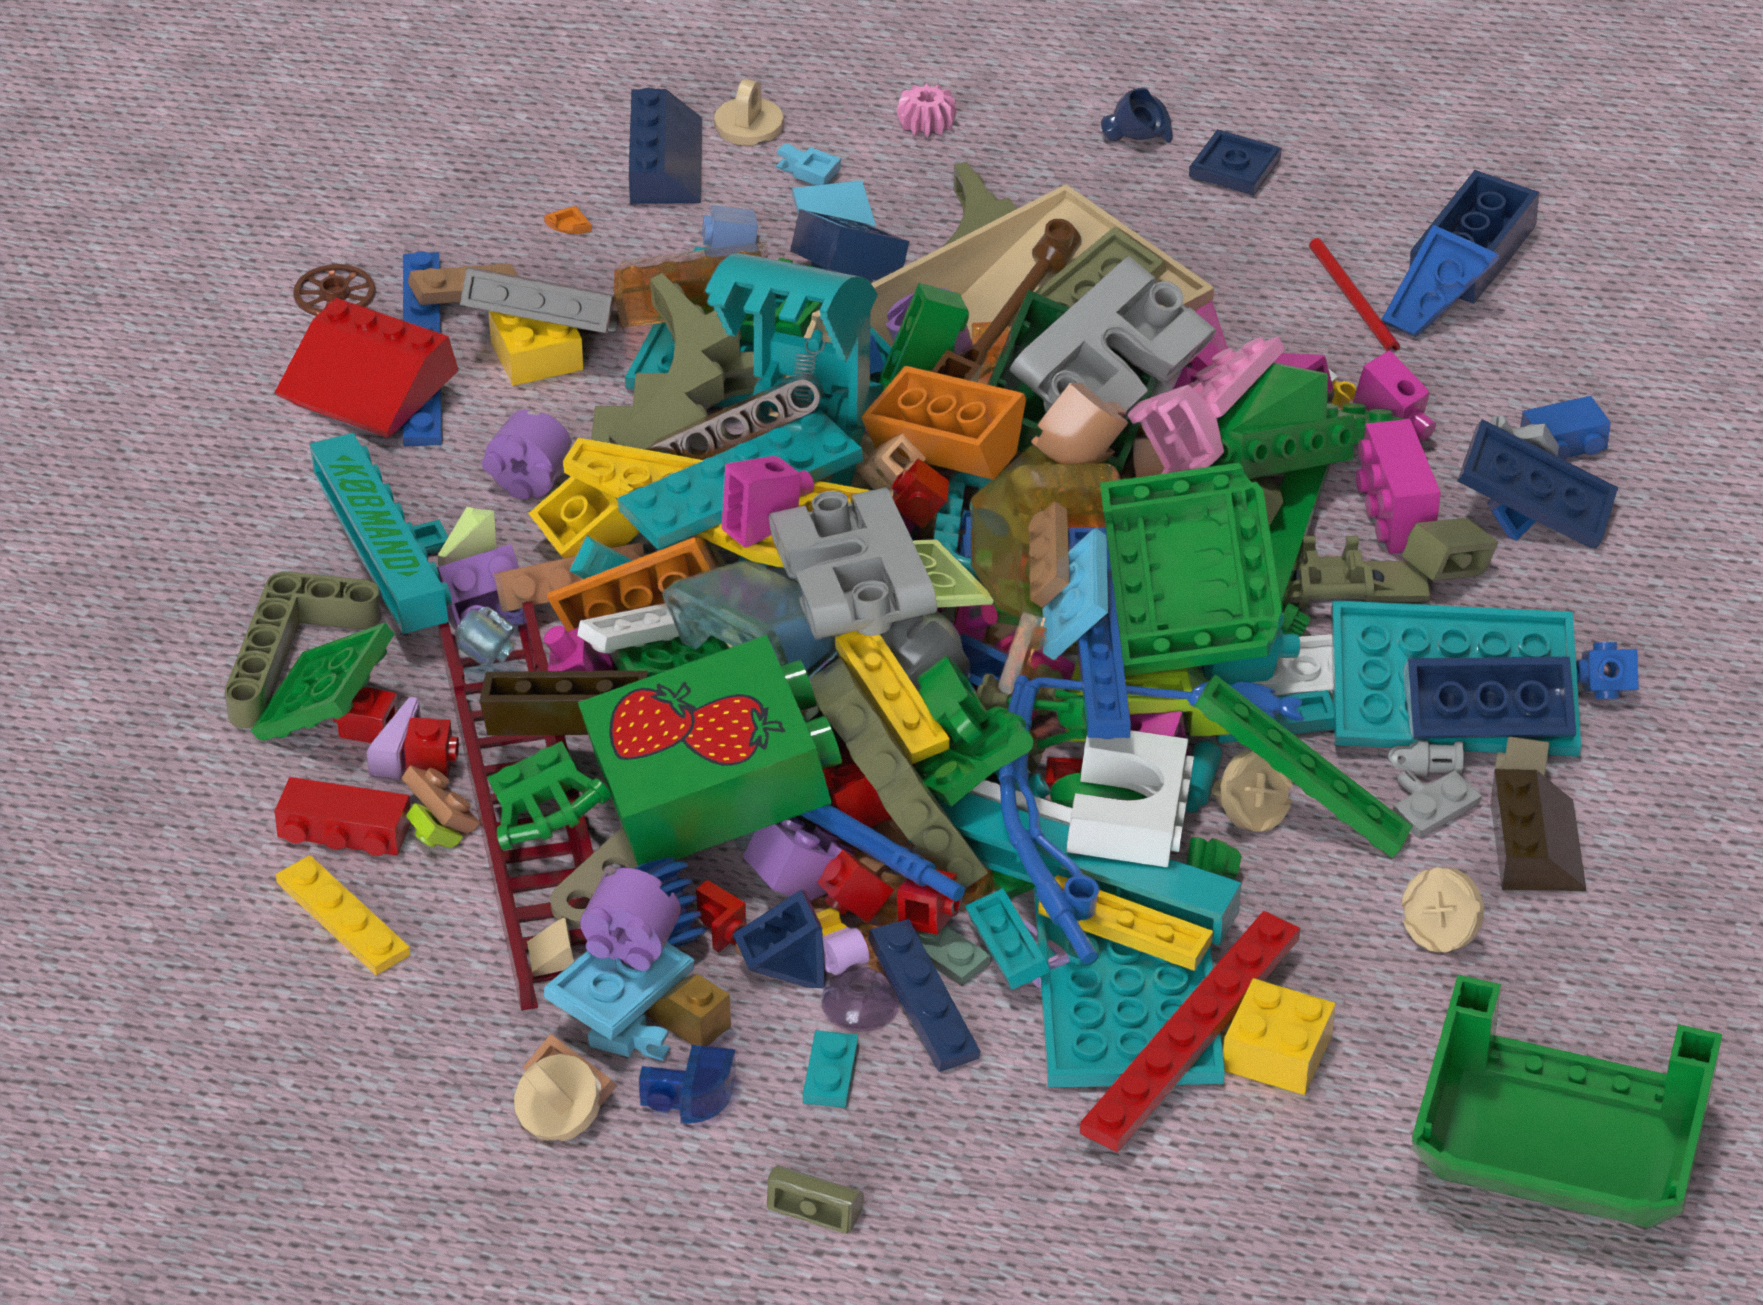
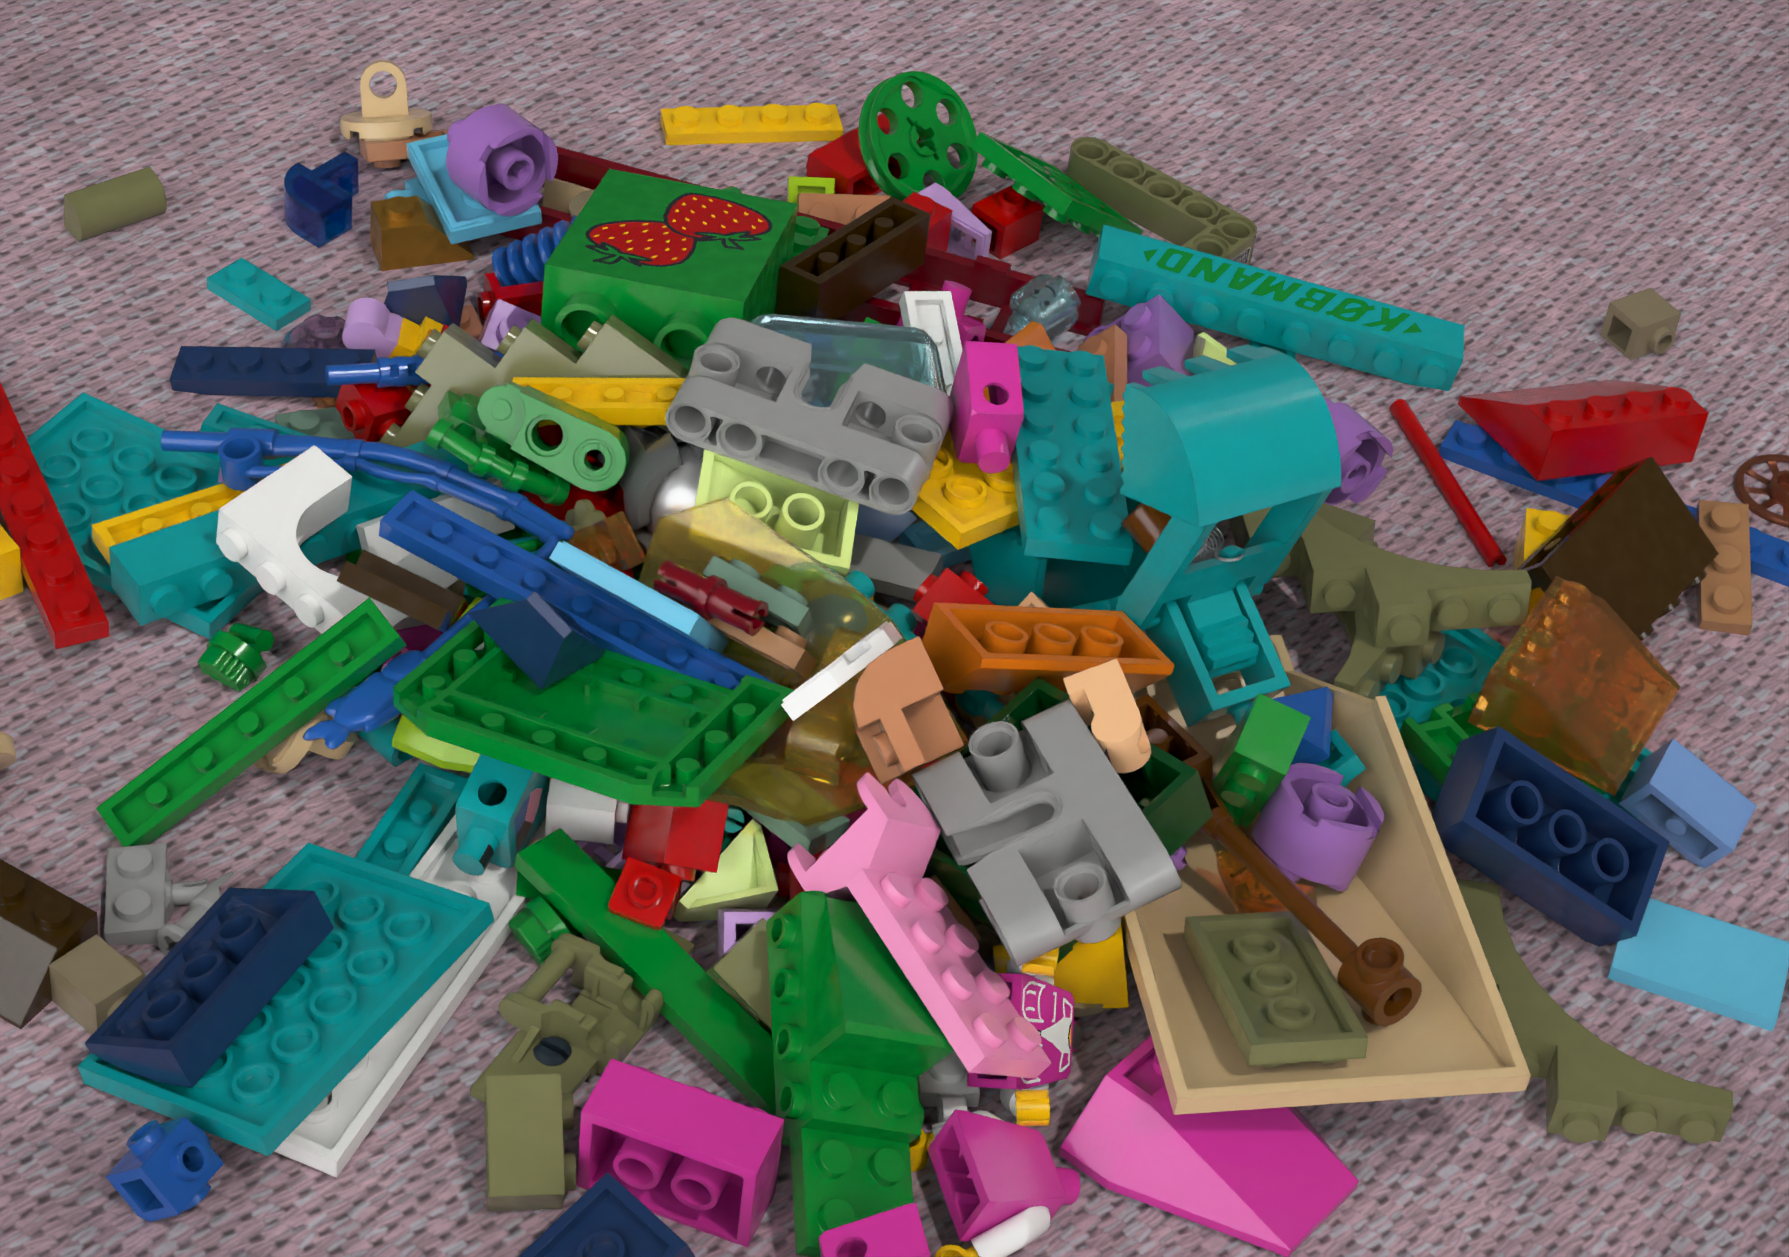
camera: 115 degrees right, 0 degrees up
(207, 384) = (1640, 324): none -> dark tan brick
(329, 769) = (902, 138): none -> green wedge
(471, 429) = (1447, 483): none -> red piece
(1015, 331) = (1109, 707): none -> light nougat leg
(1026, 540) = (784, 605): none -> sand green plate
(1066, 538) = (711, 597): none -> dark red pin
(1102, 440) = (840, 670): none -> white tile
(1160, 600) = (539, 638): none -> dark blue slope
(1166, 710) = (403, 591): none -> dark brown slope

